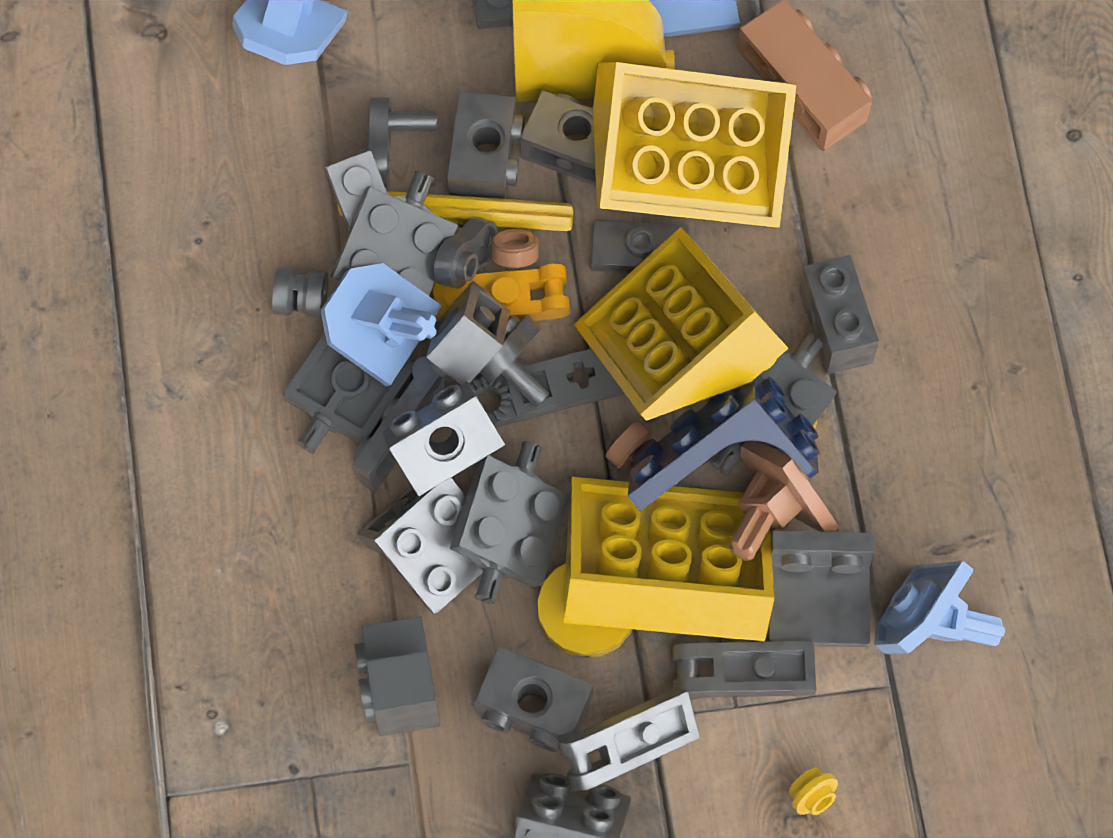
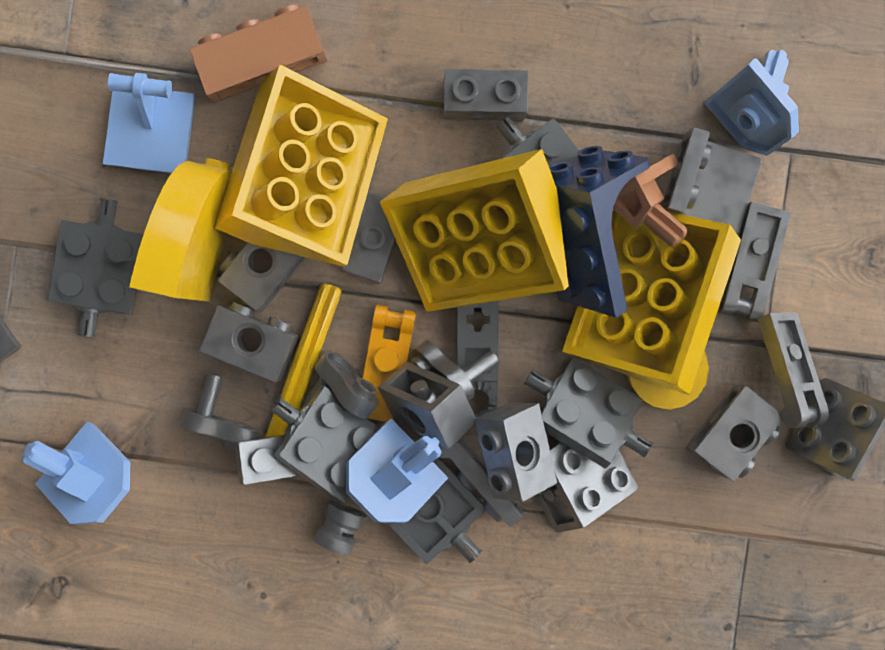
camera: 70 degrees left, 20 degrees up
(399, 678) = (698, 532): dark grey brick -> none
(514, 248) = (349, 341): nougat tile -> none
(627, 443) = (550, 304): nougat tile -> none
(813, 791) = (866, 239): yellow plate -> none

